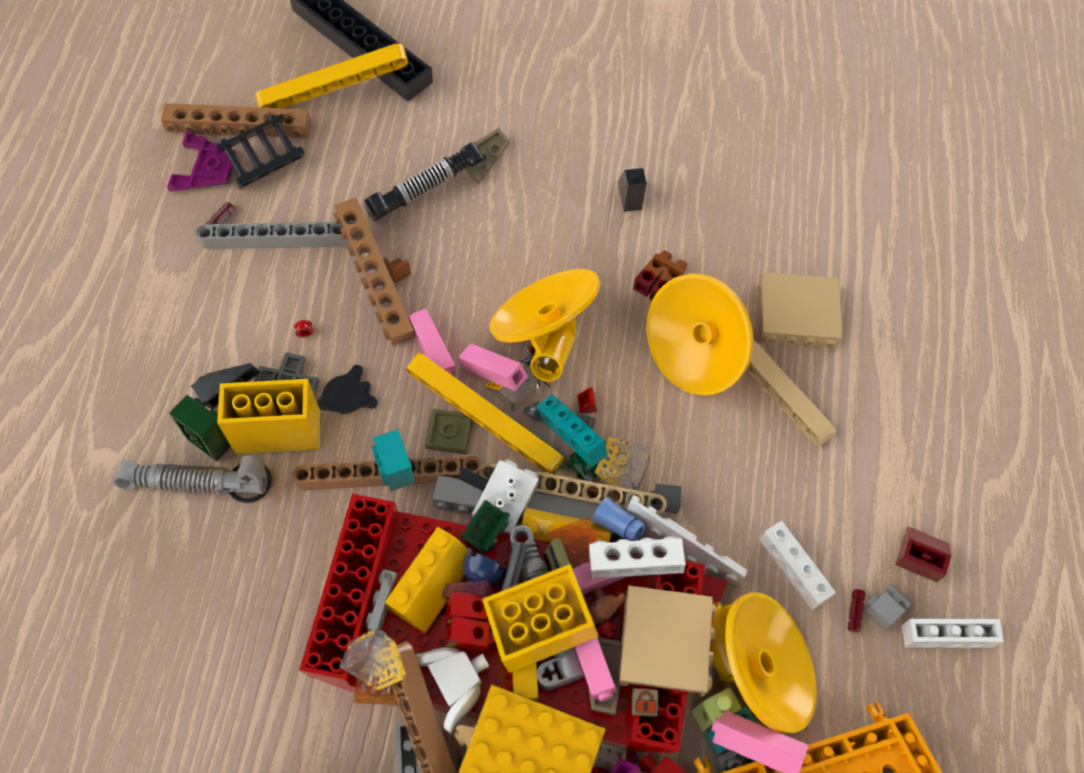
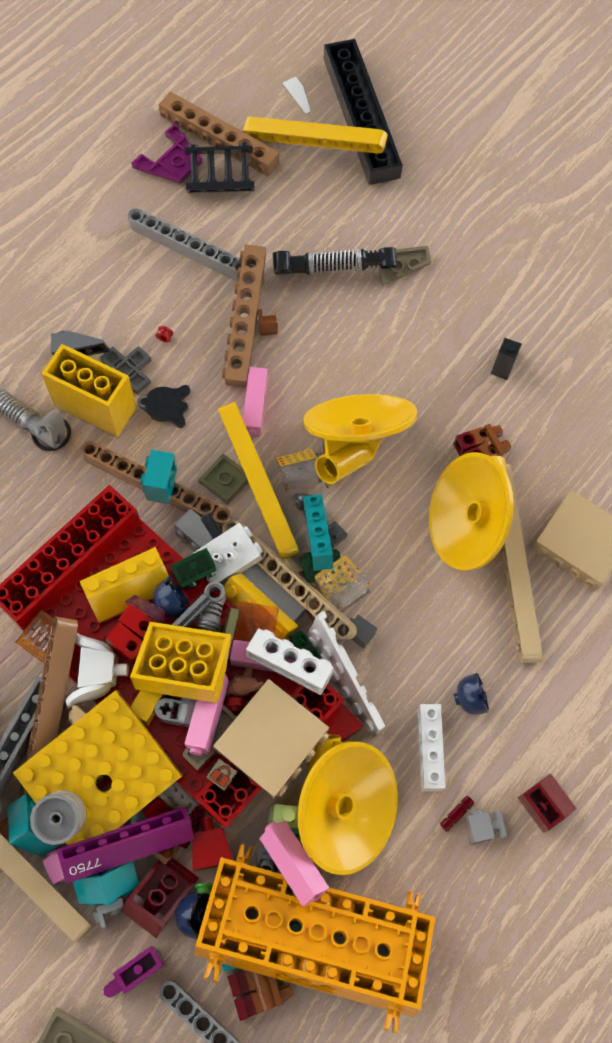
camera: 30 degrees right, 5 degrees up
(200, 427) = (33, 361): dark green brick -> none
(221, 214) = (159, 207): dark red axle -> none
(286, 50) = (297, 91): none -> white sticker
(374, 660) = (42, 619): clear slope -> none
(376, 619) = (71, 589): light grey hinge -> none
(493, 367) = (288, 446): bright pink brick -> none
(587, 401) = (350, 516): red slope -> none
(617, 520) = (301, 624): medium blue plant -> none
(800, 497) = (471, 695): none -> dark blue cylinder
(952, 633) = (523, 880): white brick -> none

